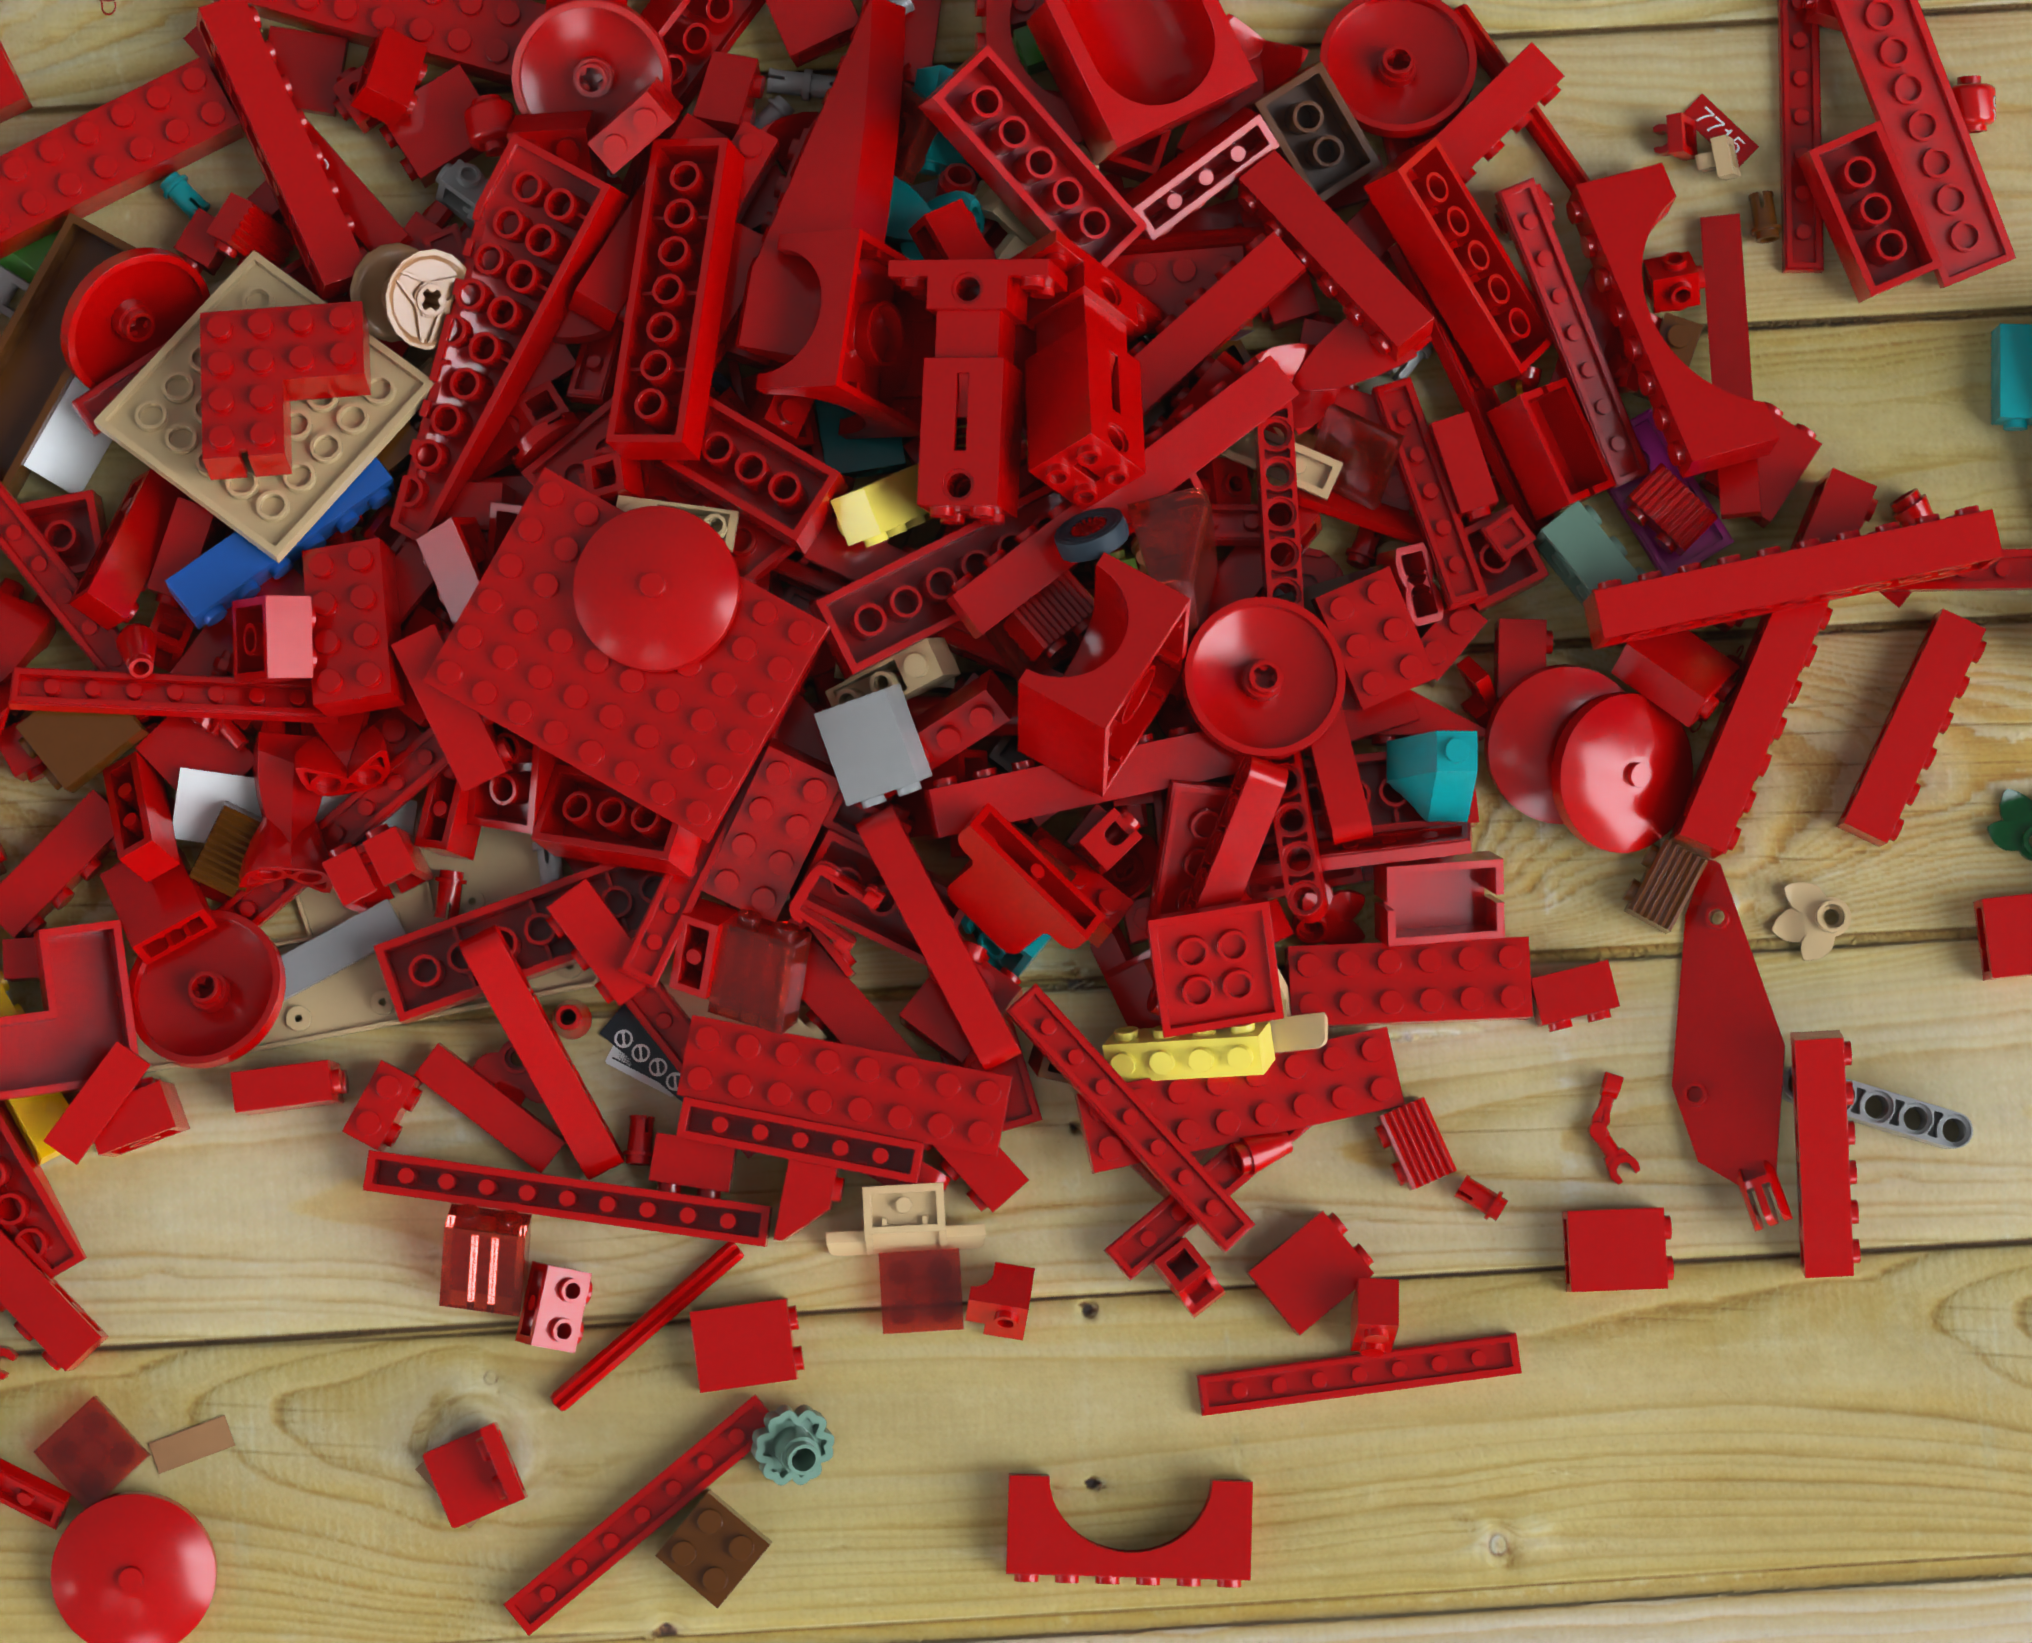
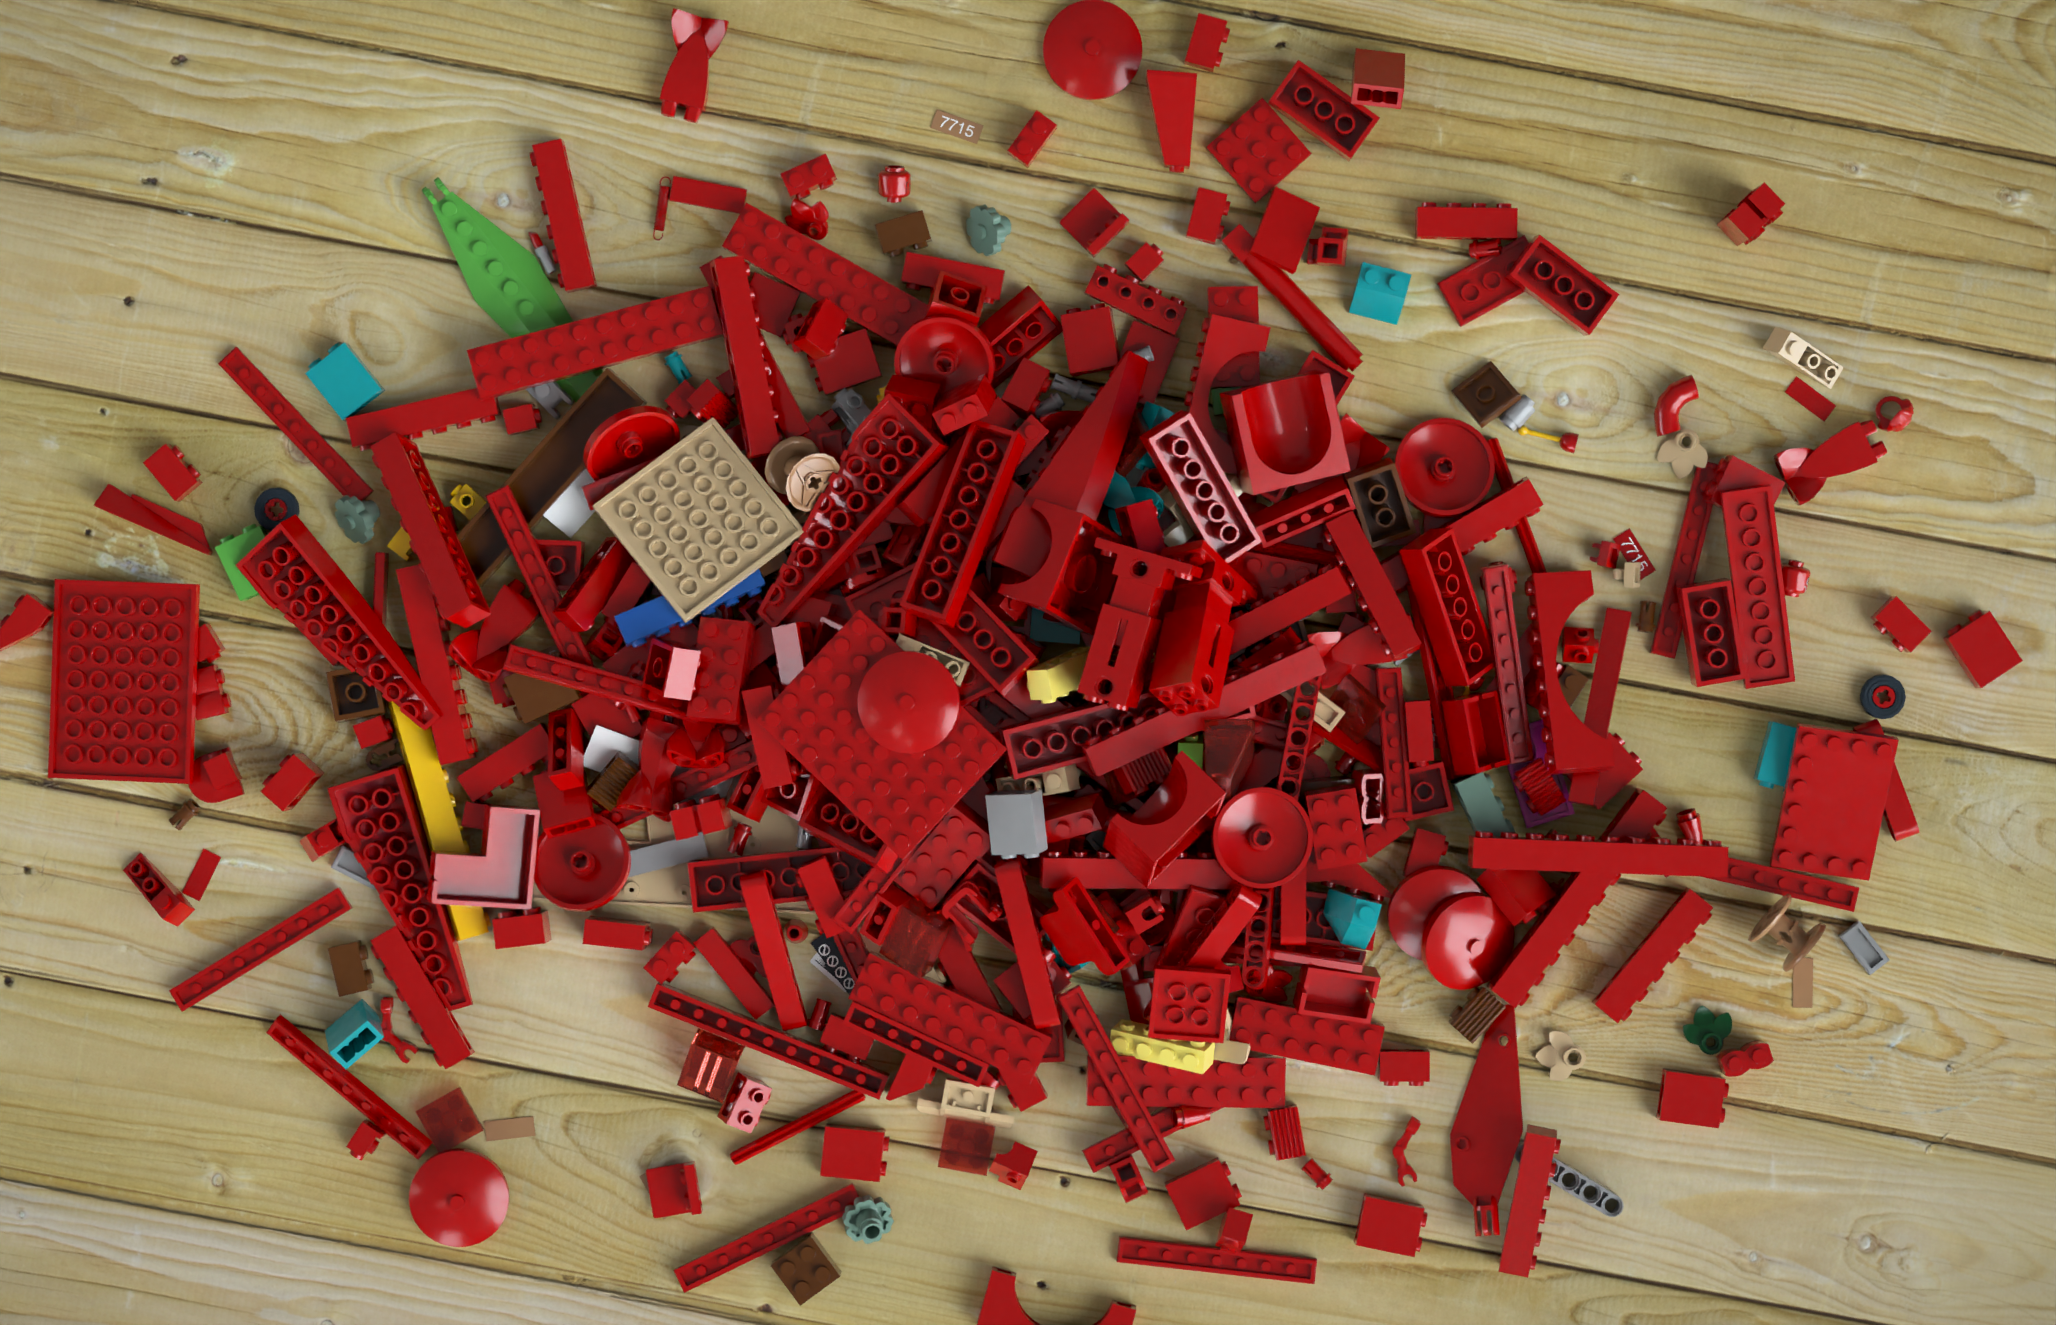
camera: 20 degrees right, 5 degrees up
(97, 1102) = (502, 918): red tile -> none
(137, 648) = (587, 650): red cone -> none
(261, 363) = (703, 495): red piece -> none
(488, 123) = (875, 374): red head -> none
(1091, 534) = (1177, 734): black bush -> none
(1481, 687) = (1394, 874): red slope -> none
(1508, 534) = (1435, 780): red tile -> none

